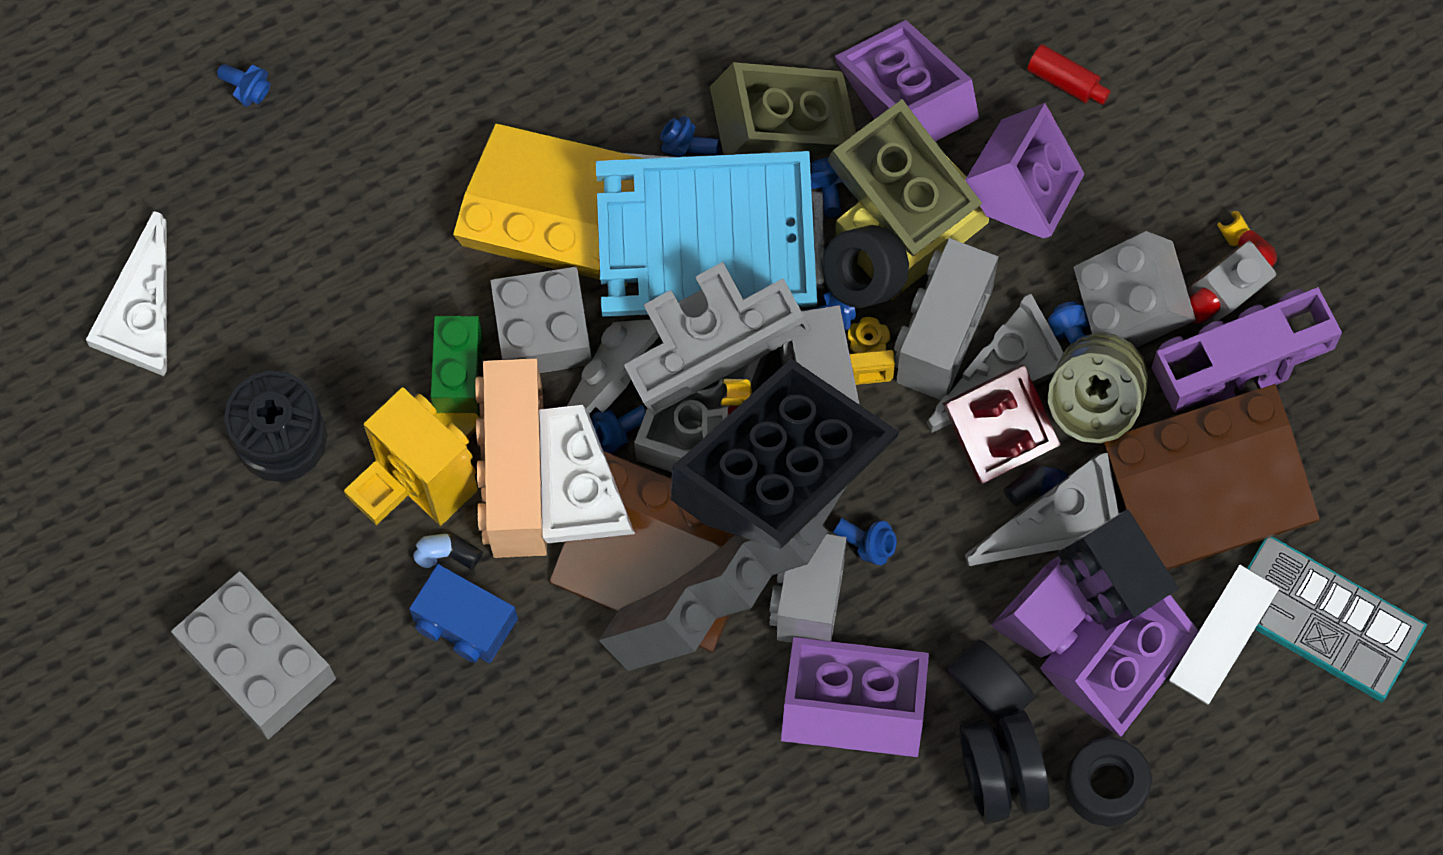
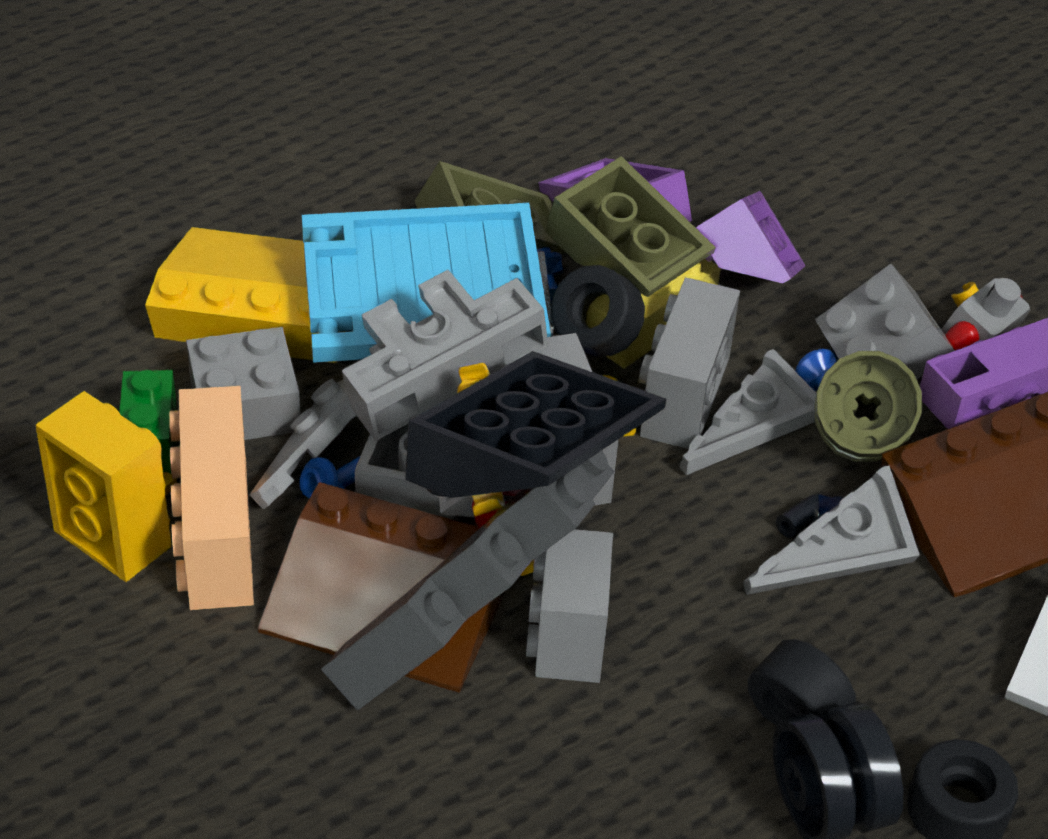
camera: 10 degrees left, 25 degrees down
(375, 492) = (49, 546): yellow plate -> none
(446, 545) = (136, 596): arm -> none
(462, 615) = (152, 657): blue brick -> none
(576, 480) = (290, 504): white wing -> none
(855, 697) = (640, 721): medium lavender slope -> none
(873, 545) = (640, 572): blue plate -> none
(1001, 423) = (763, 454): plate -> none
(1044, 613) = (863, 603): medium lavender slope -> none
(1067, 75) = (777, 191): red cylinder -> none
(1116, 571) = (938, 533): black brick -> none
(1121, 668) = (943, 658): medium lavender slope -> none

